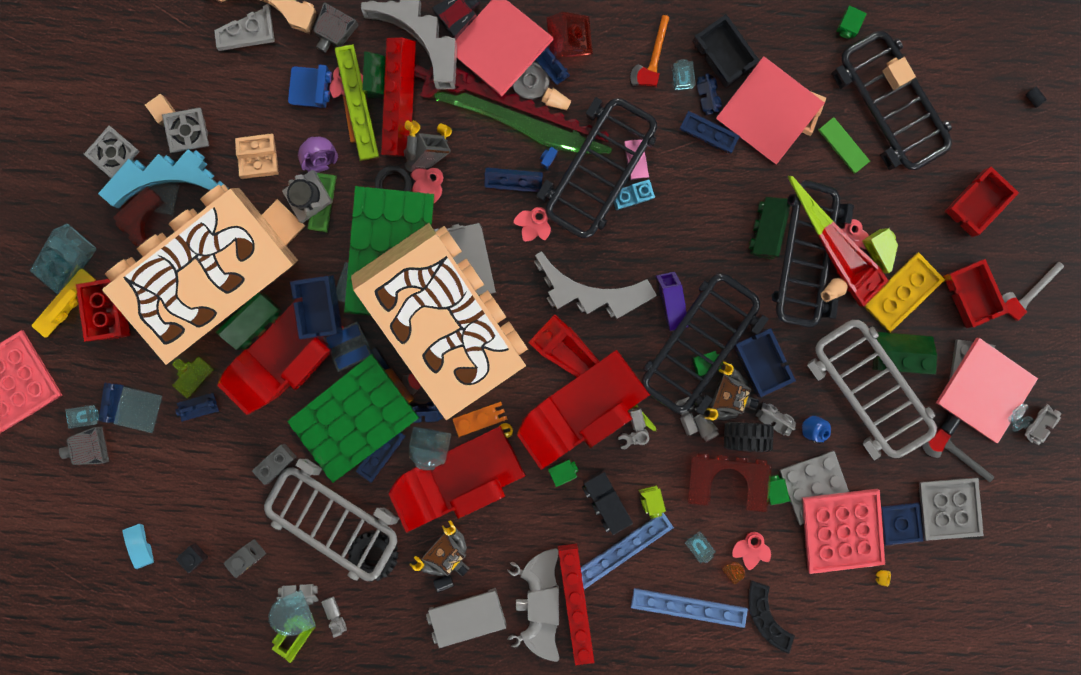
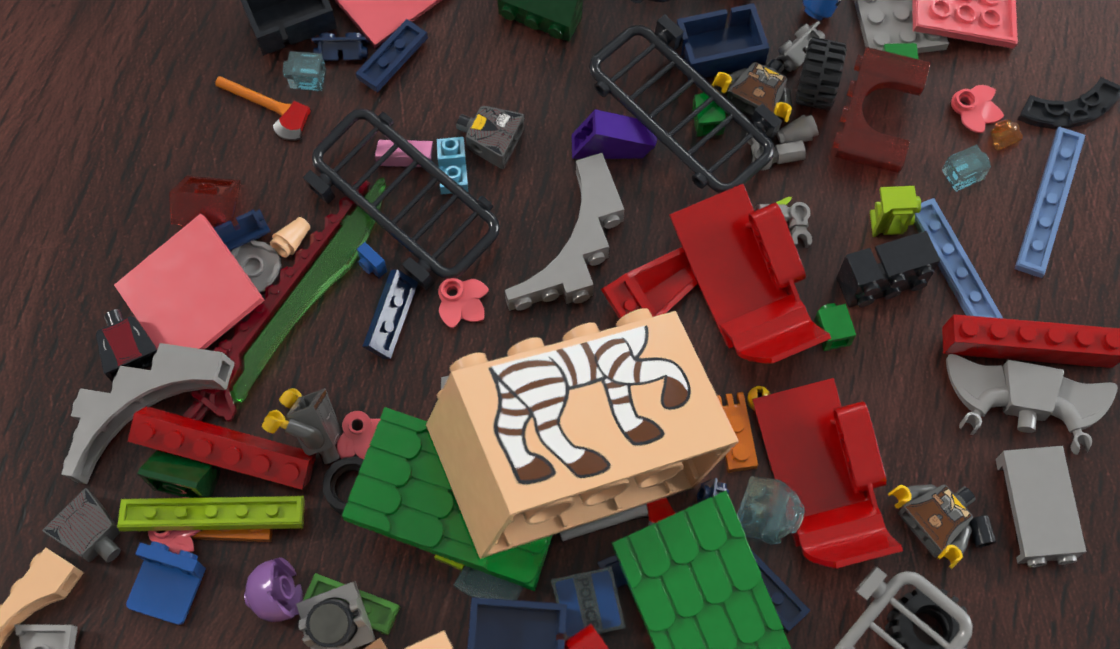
camera: 80 degrees left, 20 degrees down
(660, 216) = (492, 133): none -> dark grey torso

